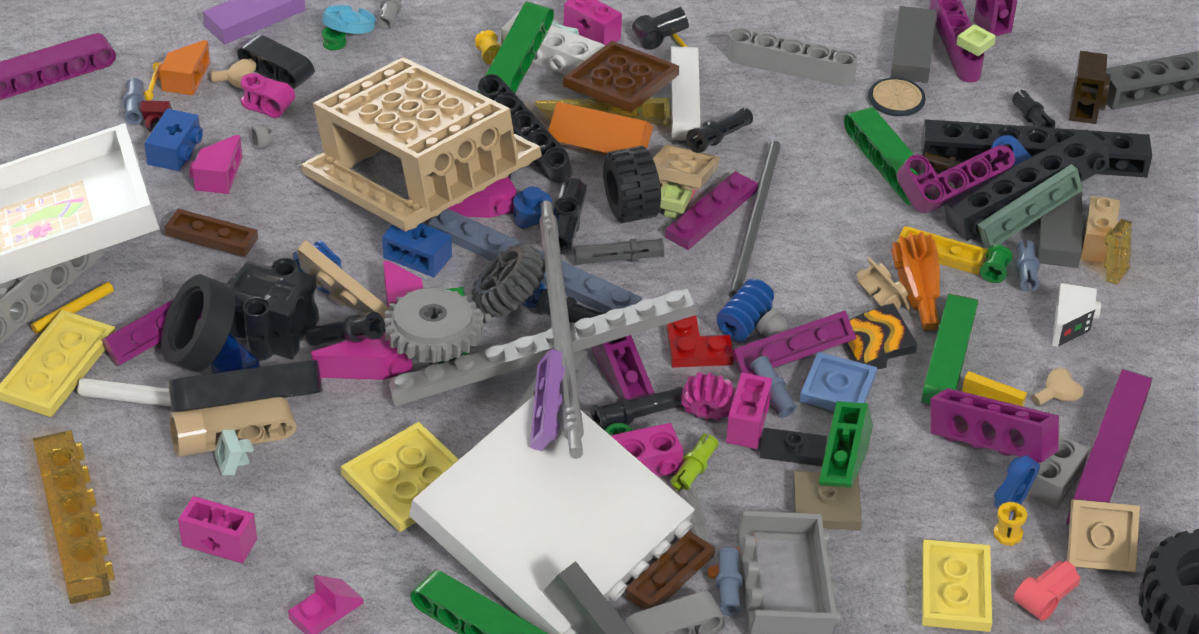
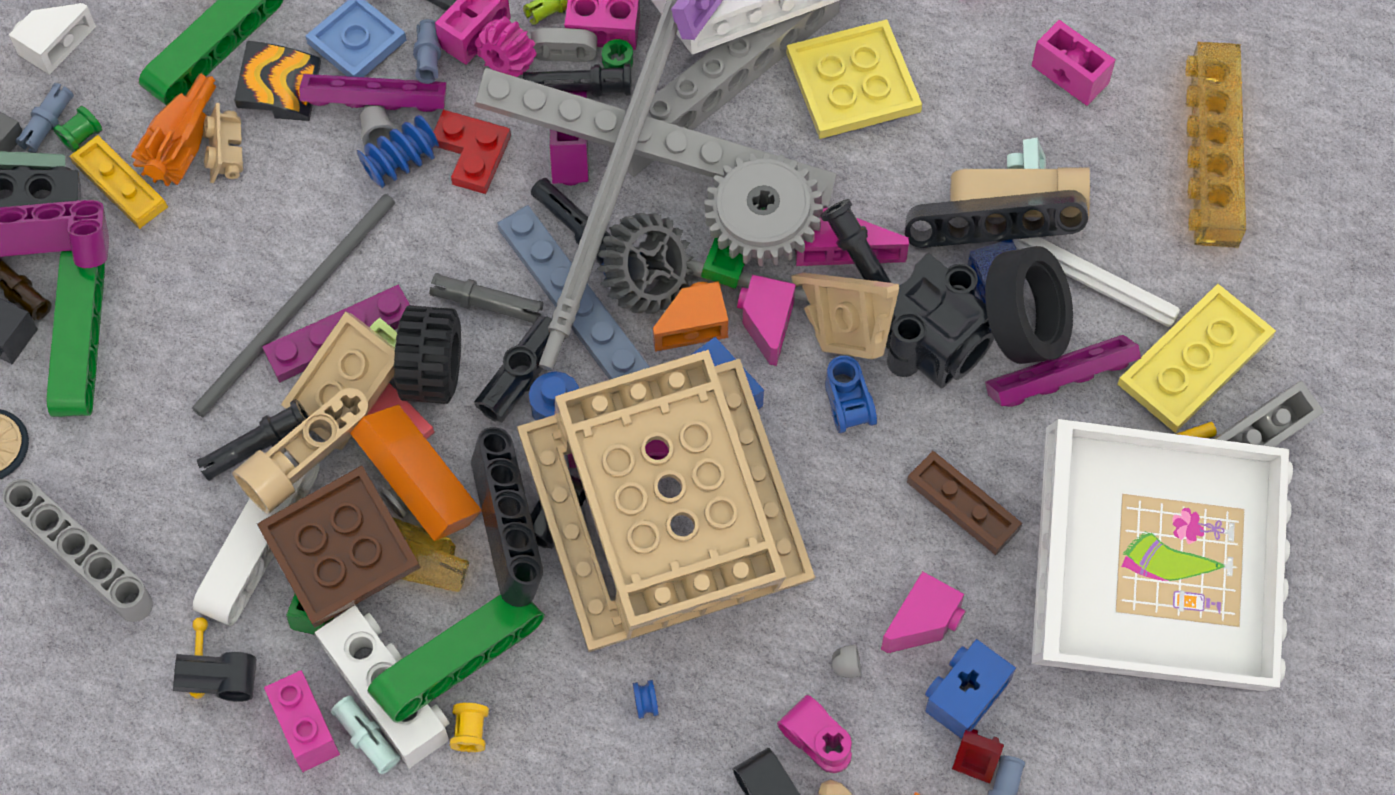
camera: 155 degrees left, 20 degrees up
(458, 271) = (692, 318): none -> orange slope
(678, 106) = (270, 475): none -> tan beam
(681, 420) = (564, 44): none -> light grey beam

